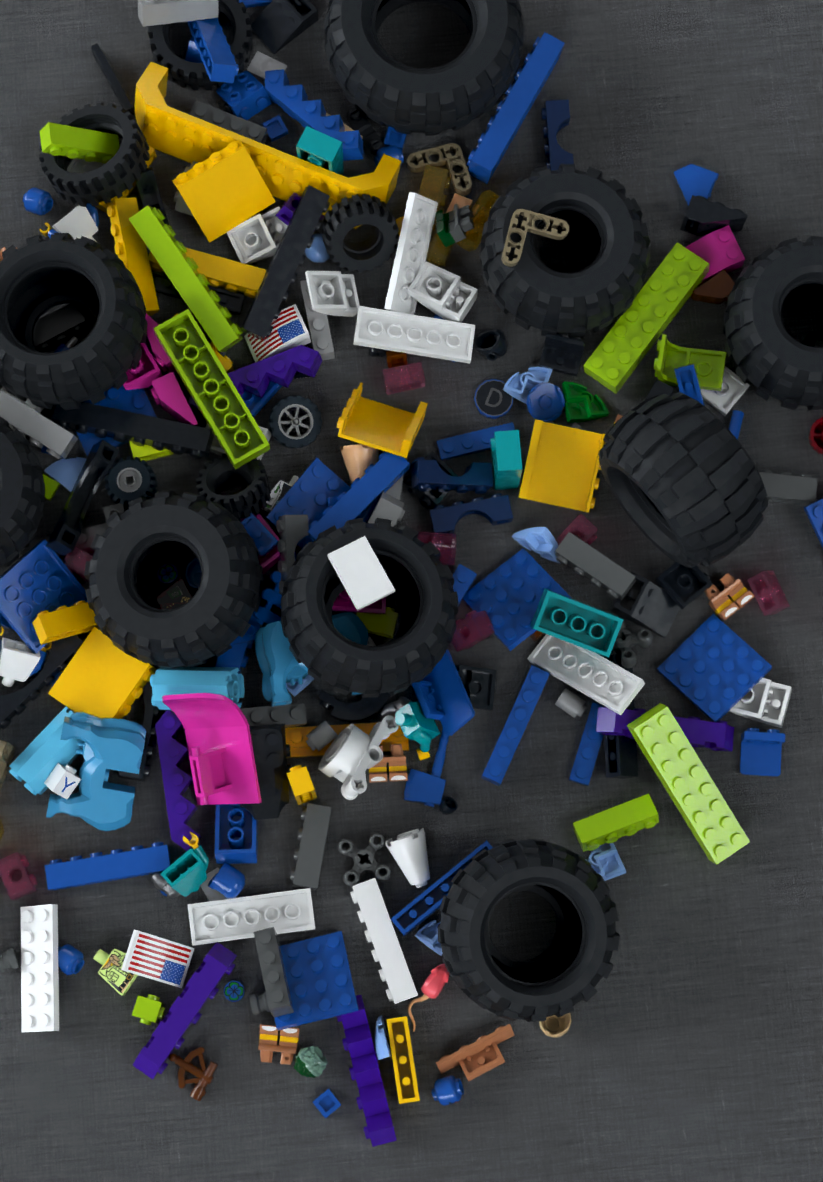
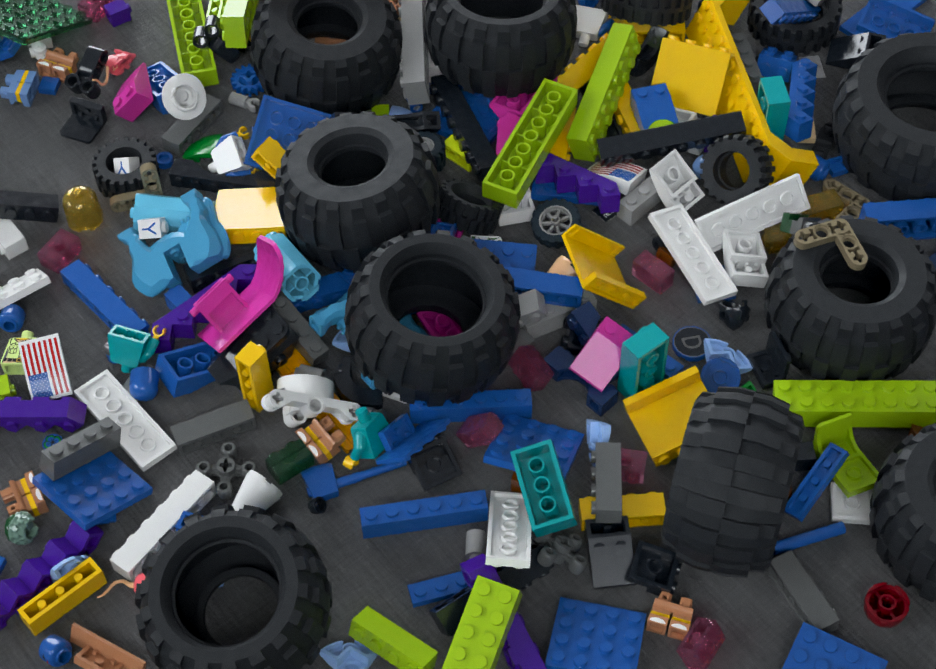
camera: 60 degrees right, 25 degrees down
(151, 800) = (176, 296): none -> blue brick
(240, 252) = (652, 106): none -> blue slope
(361, 573) = (446, 268): white tile -> none
(390, 802) = (289, 461): none -> clear green brick
(473, 483) = (601, 354): none -> slope
(624, 554) = (640, 508): none -> yellow brick

